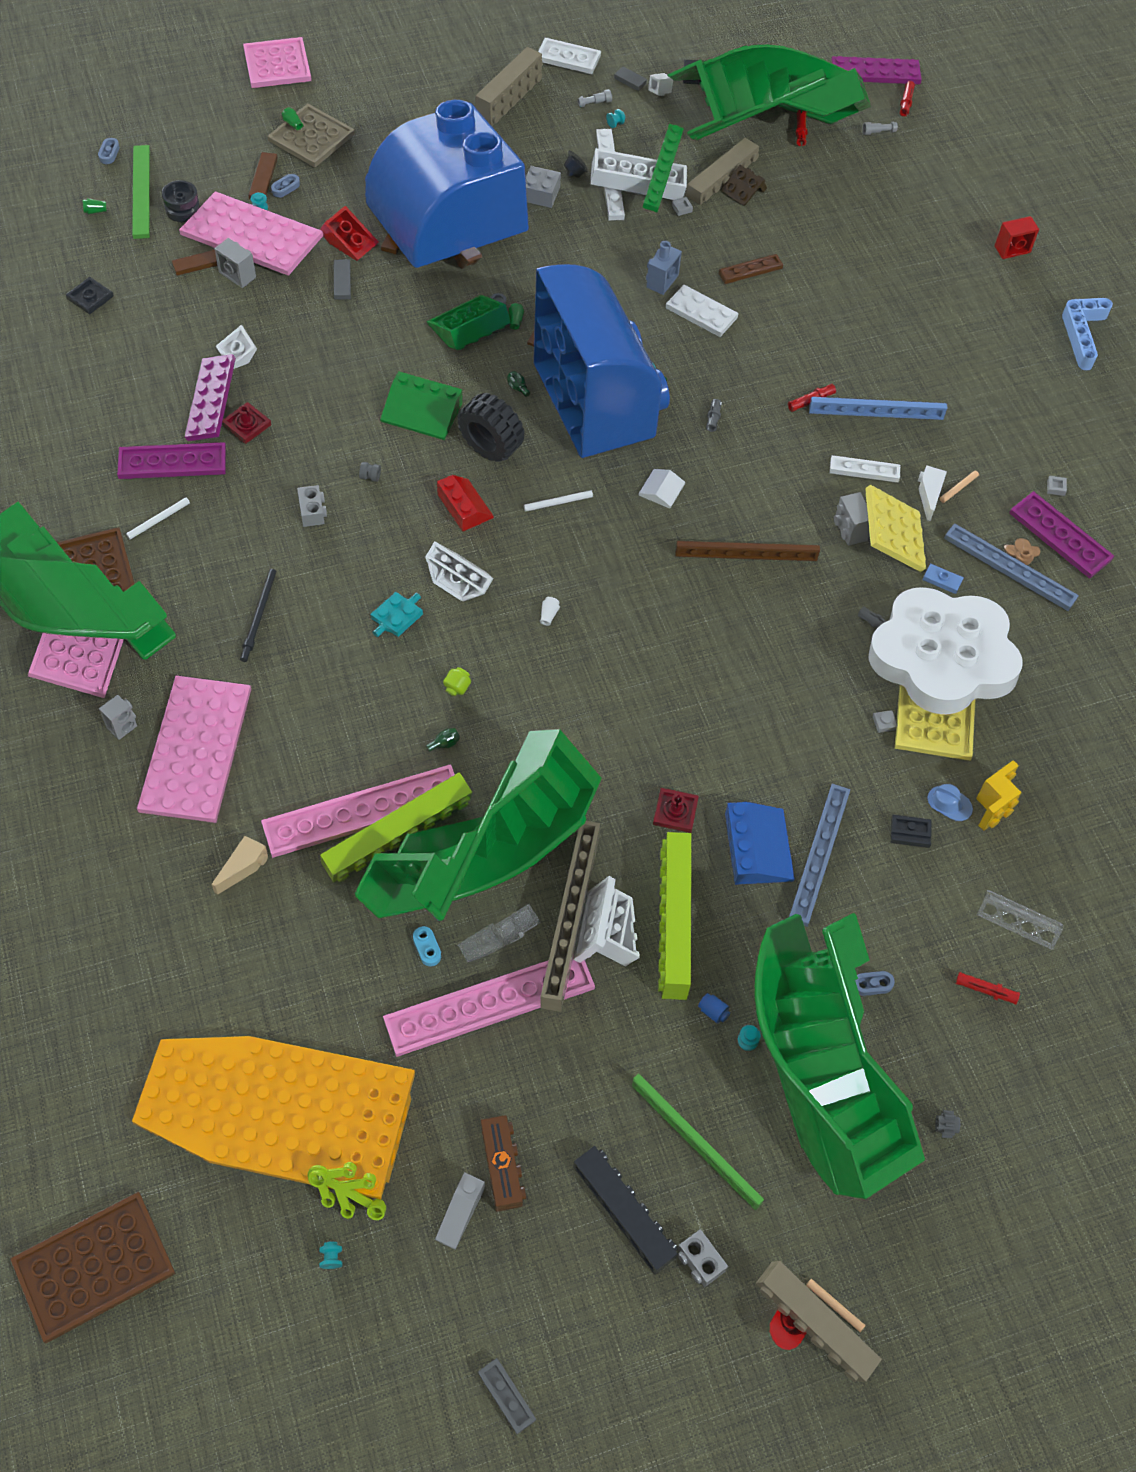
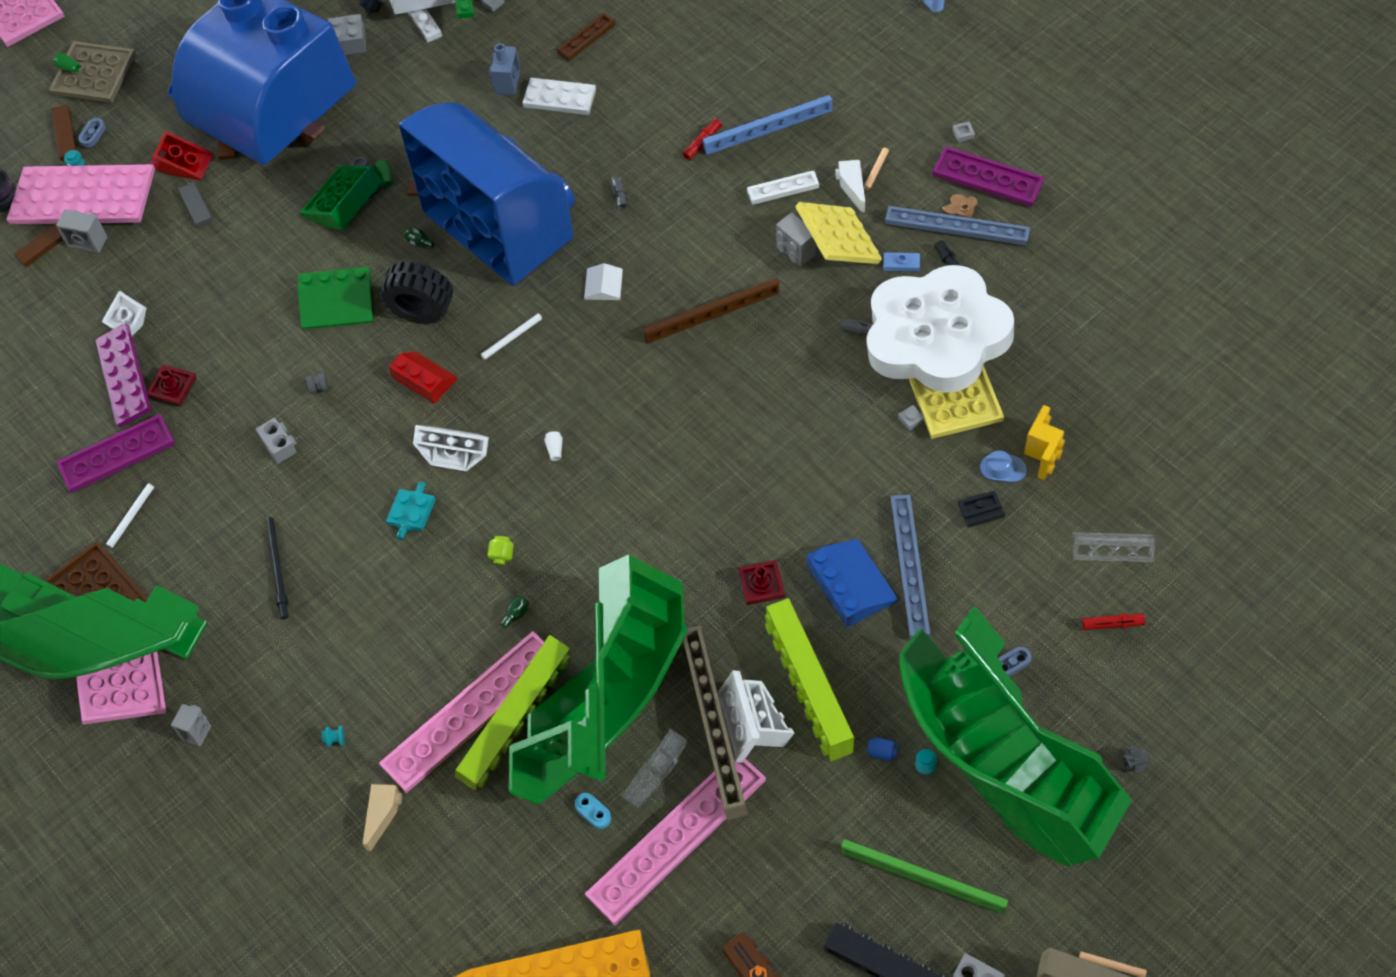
camera: 15 degrees left, 0 degrees up
(194, 749) = (279, 723): bright pink plate -> none
(231, 779) = (330, 736): none -> teal wheel
(988, 590) = (946, 255): none -> black pin

